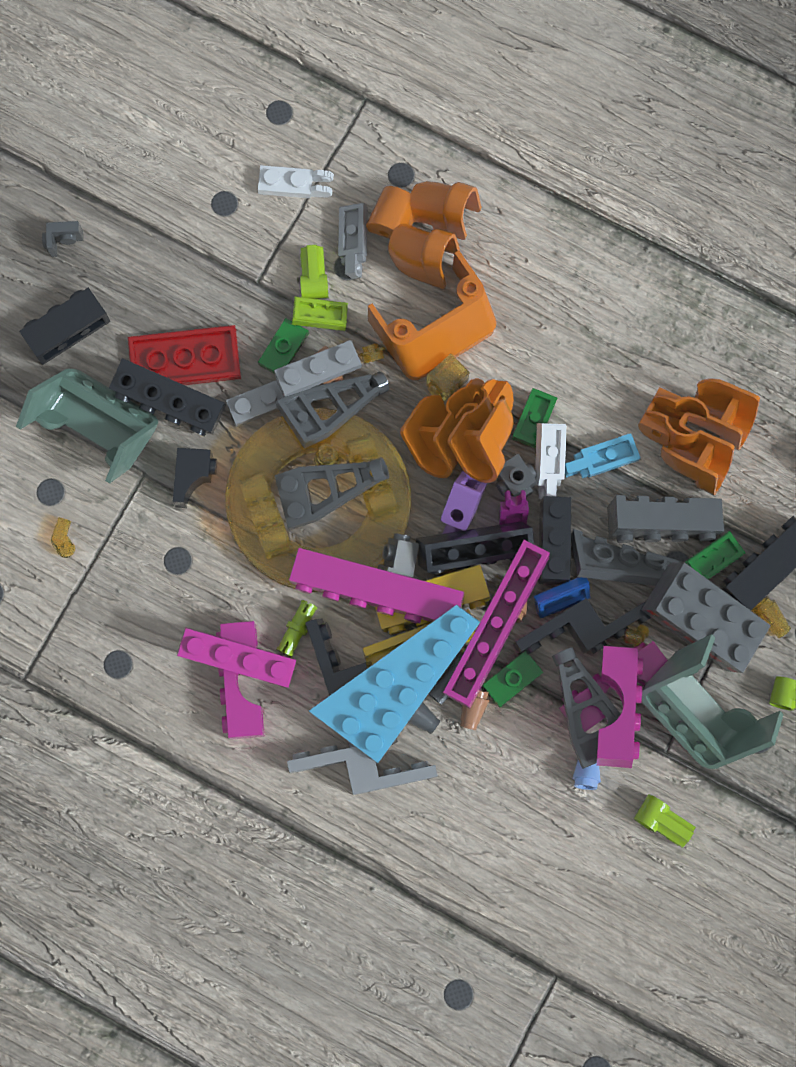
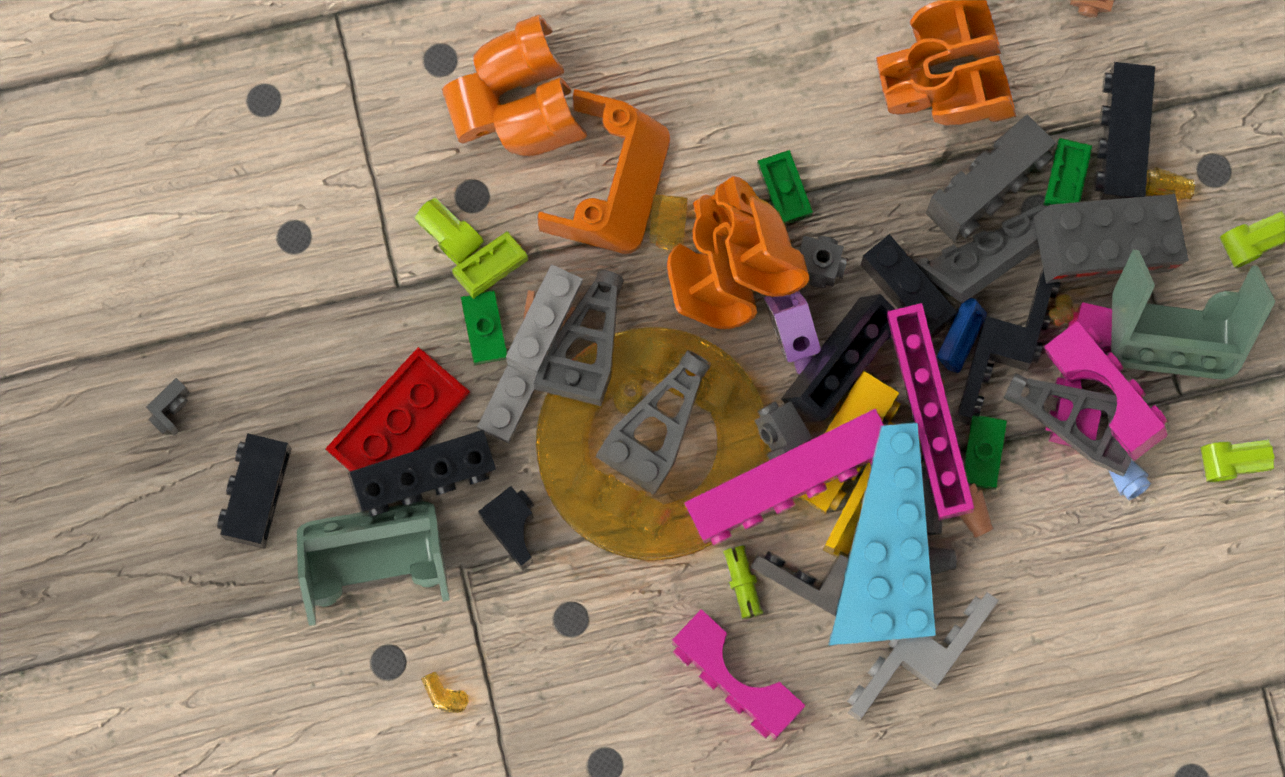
camera: 35 degrees left, 0 degrees up
(236, 657) = (715, 656): dark pink arch -> none
(293, 182) = (343, 158): white hinge -> none
(353, 238) = (454, 163): light grey hinge -> none
(371, 353) = (576, 259): clear yellow plate -> none
(514, 508) = (844, 292): magenta plate -> none
(550, 457) = (835, 214): white hinge -> none
(603, 457) = (882, 169): medium azure hinge -> none

